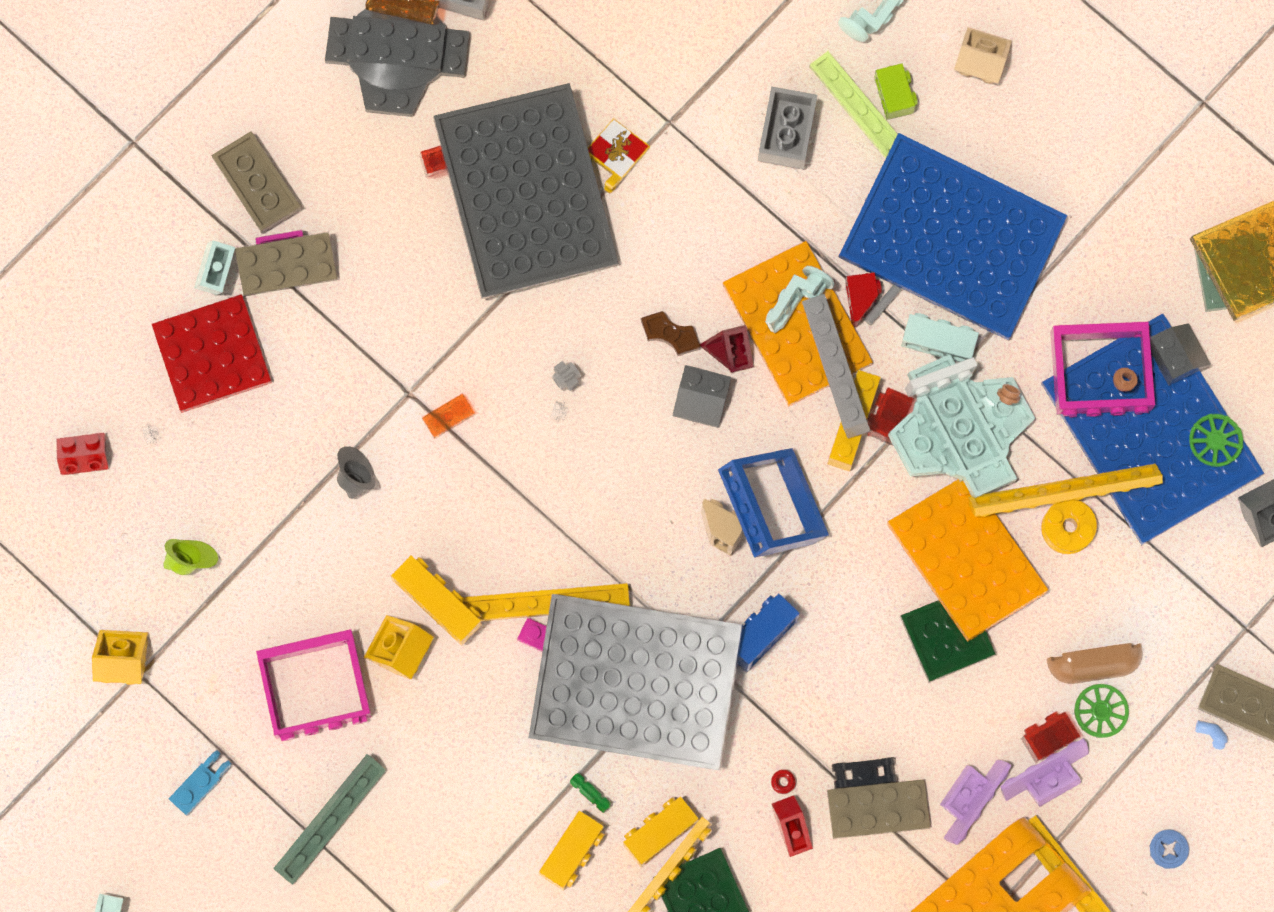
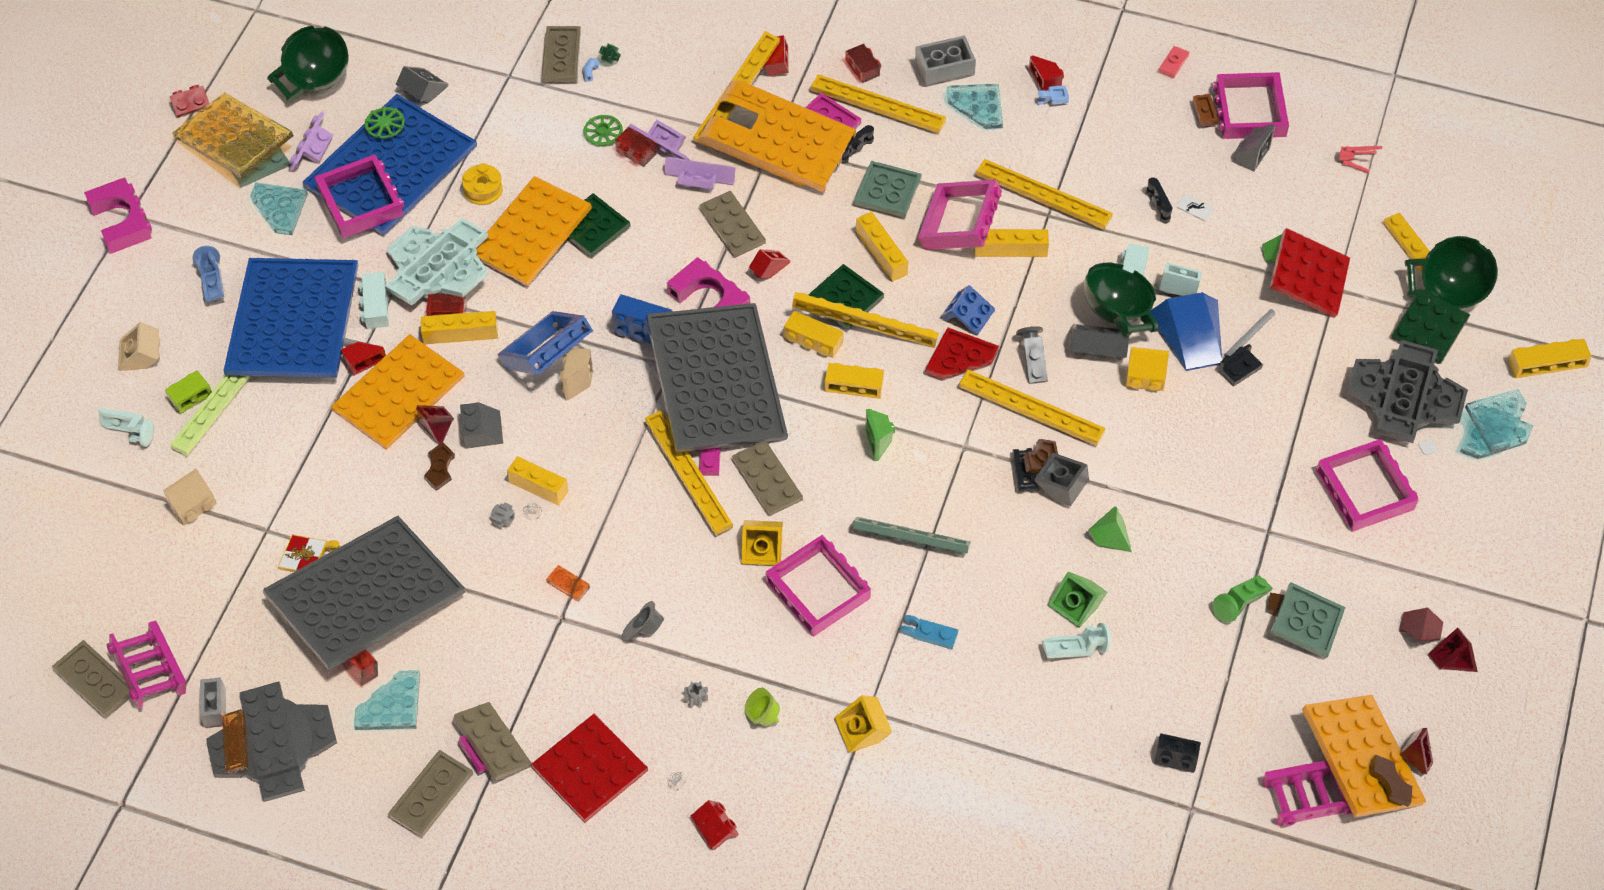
camera: 110 degrees left, 20 degrees down
(214, 267) = (518, 787): light aqua brick -> none
(246, 498) = (692, 690): none -> light grey gear
(380, 178) = (391, 704): none -> clear light blue plate
(436, 599) = (716, 524): yellow brick -> none
(480, 842) = (879, 432): none -> bright green slope
(485, 691) = (767, 478): none -> dark tan plate
(590, 792) = (807, 387): green axle -> none
(594, 430) = (537, 480): none -> yellow brick
(737, 49) = (189, 497): none -> tan slope
(783, 774) = (741, 276): red plate -> none
(787, 127) = (244, 444): light grey brick -> none
(791, 296) = (369, 380): light aqua piece -> none
(811, 734) = (700, 275): none -> dark pink arch
(836, 366) = (424, 339): light grey brick -> none
(864, 773) = (711, 239): black plate -> none
(941, 378) = (407, 277): white plate -> none
(1009, 394) = (401, 240): nougat plate -> none
(1058, 165) = (207, 260): none -> medium blue piece
(1065, 490) = (458, 186): yellow plate -> none
(1096, 663) = (571, 142): medium nougat brick -> none
(1120, 383) = (364, 173): nougat plate -> none
(1141, 277) = (279, 205): none -> clear light blue plate
(1174, 103) = (120, 195): none -> dark pink arch
(1178, 353) = (331, 157): dark grey slope -> none
(1180, 849) = (674, 62): medium blue gear -> none
(1223, 347) = (314, 144): none -> lavender bracket
(1224, 766) = (609, 53): none -> clear green gear

